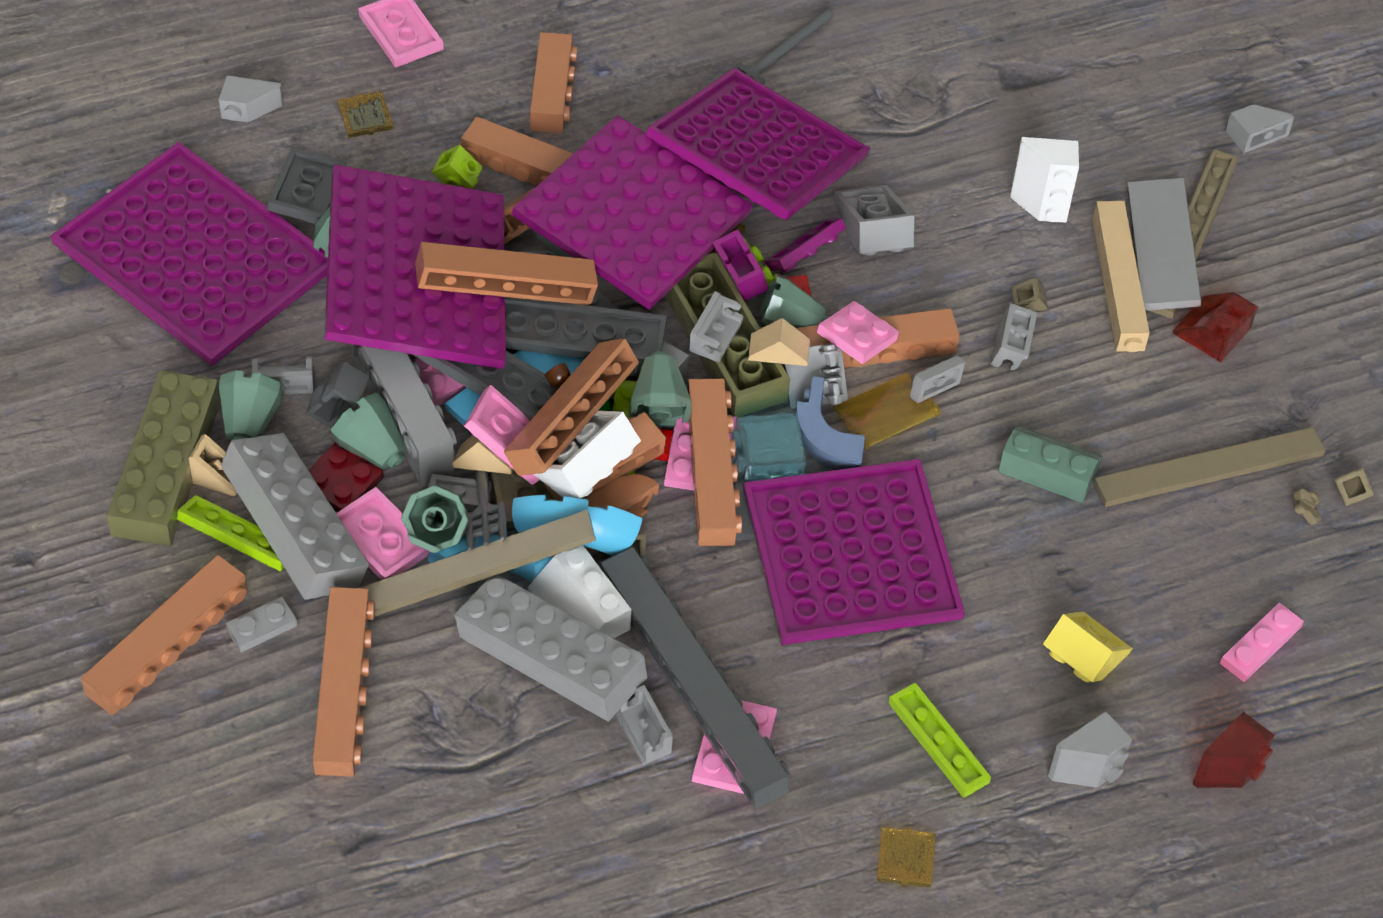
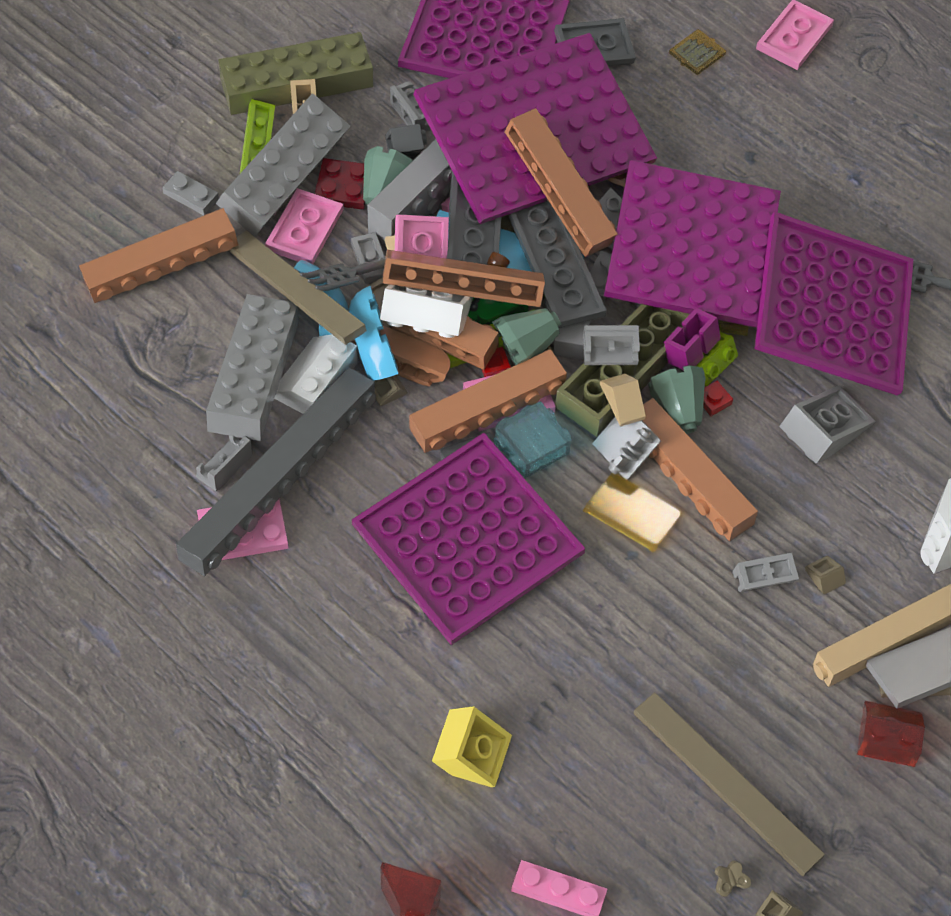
camera: 65 degrees right, 5 degrees up
(164, 635) = (148, 141): nougat brick -> none
(248, 403) = (363, 98): sand green cone -> none
(424, 521) = (323, 244): sand green cone -> none
(457, 168) = (667, 119): lime brick -> none
(512, 152) = (717, 145): nougat brick -> none
(551, 83) = (810, 148): nougat brick -> none
(805, 245) = (763, 386): magenta plate -> none
(822, 442) = (569, 464): sand blue arch -> none
(858, 332) = (678, 449): bright pink plate -> none
(906, 857) = (200, 688): clear yellow piece -> none
(937, 379) = (679, 531): light grey plate -> none
(939, 740) = (318, 669): lime plate -> none
(1049, 463) = (653, 650): sand green slope -> none
(1091, 754) = (355, 783): light grey slope -> none

